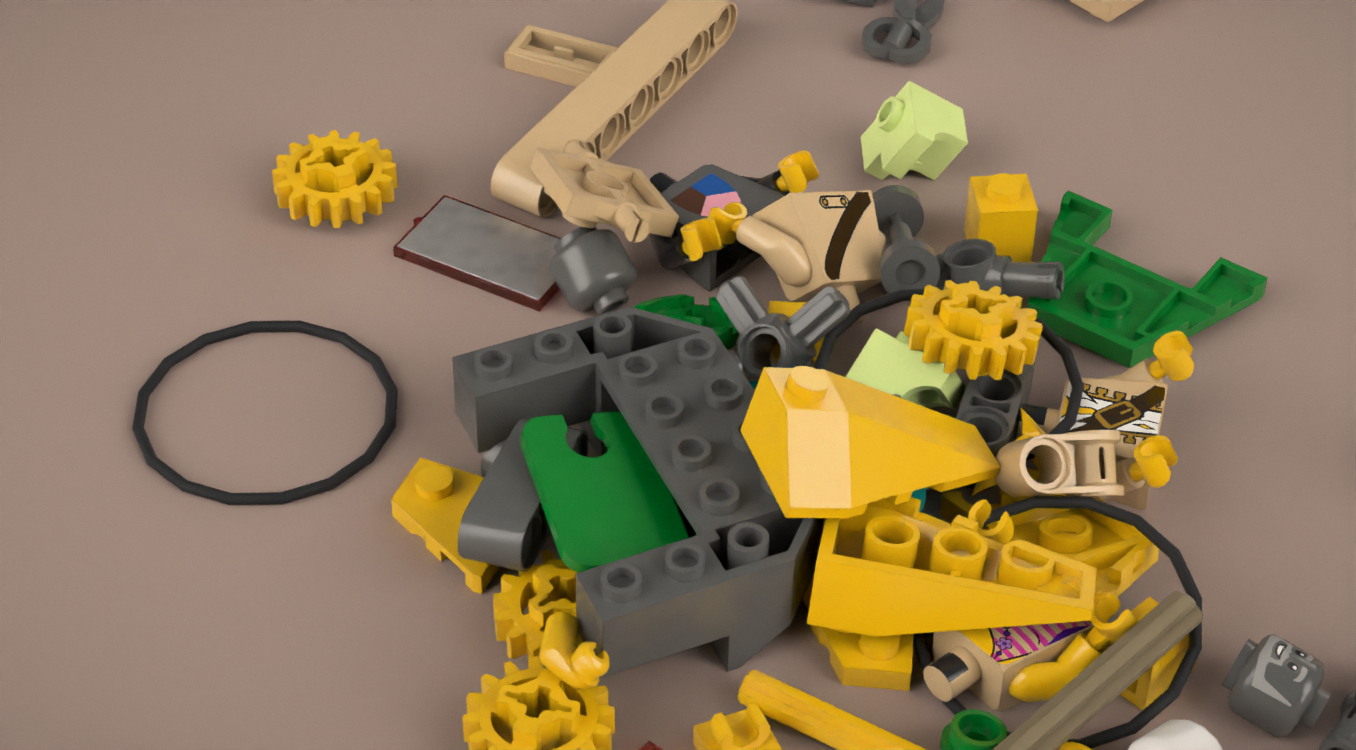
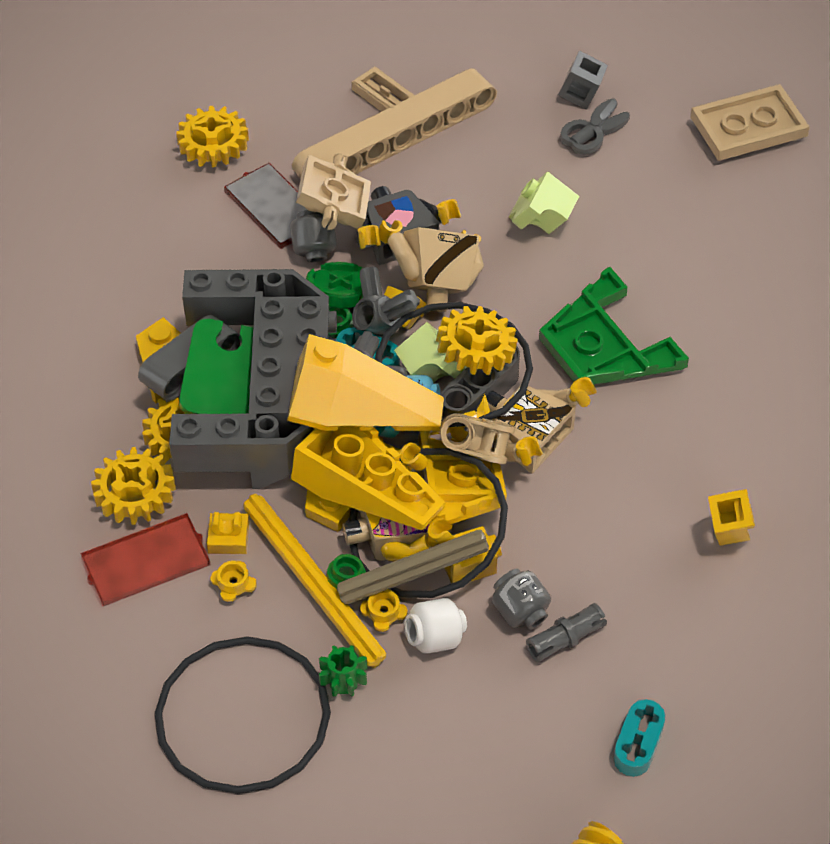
camera: 25 degrees right, 10 degrees up
(270, 497) = (106, 316): black piece -> none
(572, 664) = (155, 454): yellow arm -> none
(906, 261) = (479, 287): dark grey wheel -> none
(978, 262) = (518, 304): dark grey pin -> none
(1003, 213) = (558, 273): yellow brick -> none

